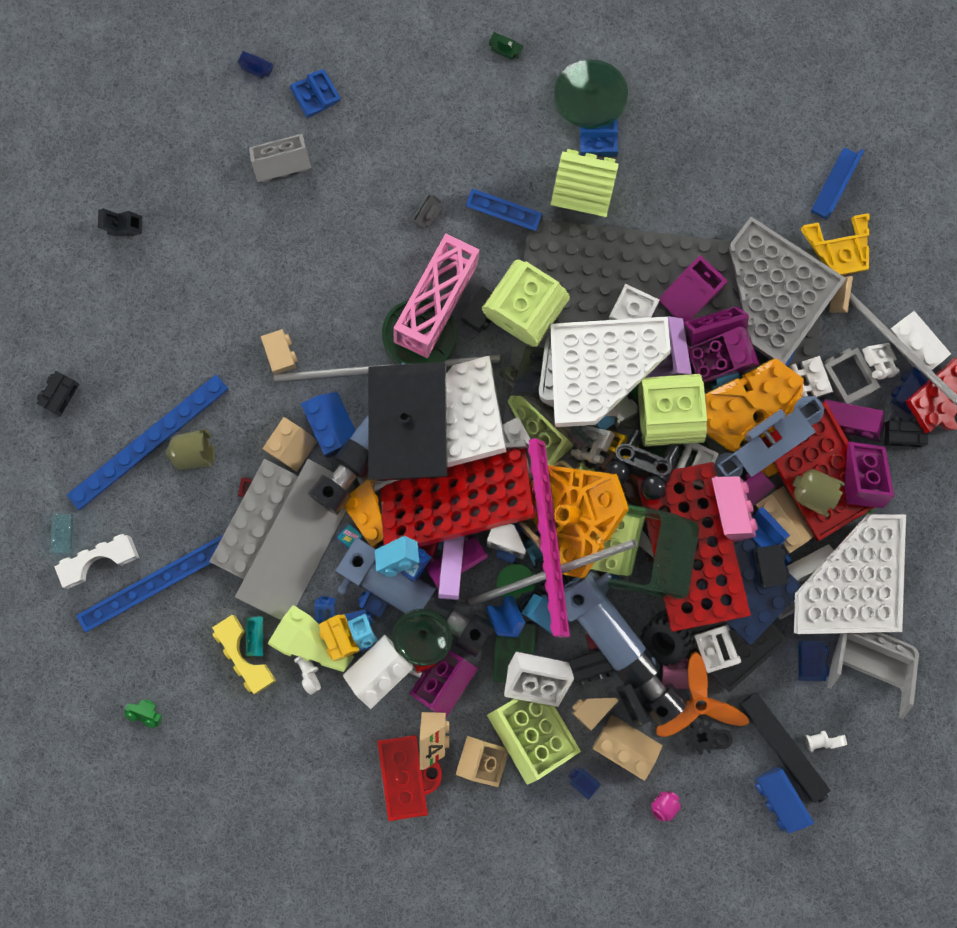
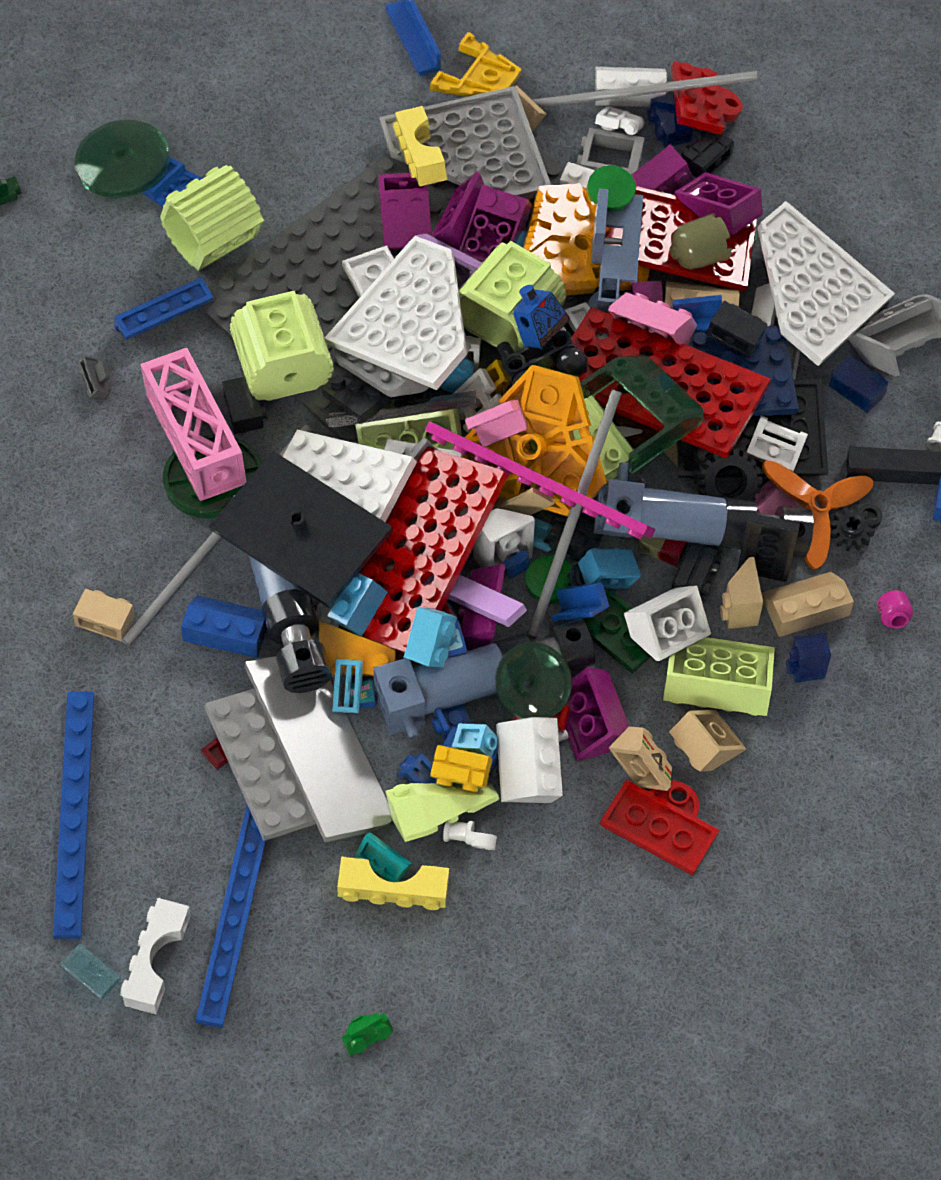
camera: 55 degrees left, 20 degrees down
(191, 450) = (127, 769): olive cylinder -> none
(290, 444) = (210, 674): tan slope -> none
(355, 518) = (357, 690): none -> medium azure tile
(392, 493) = (357, 604): none -> dark azure brick
(566, 480) = (498, 422): none -> bright pink panel
(663, 444) = (539, 317): none -> blue torso
(753, 247) = (424, 161): none -> light yellow arch
(801, 409) = (620, 186): none -> green tile

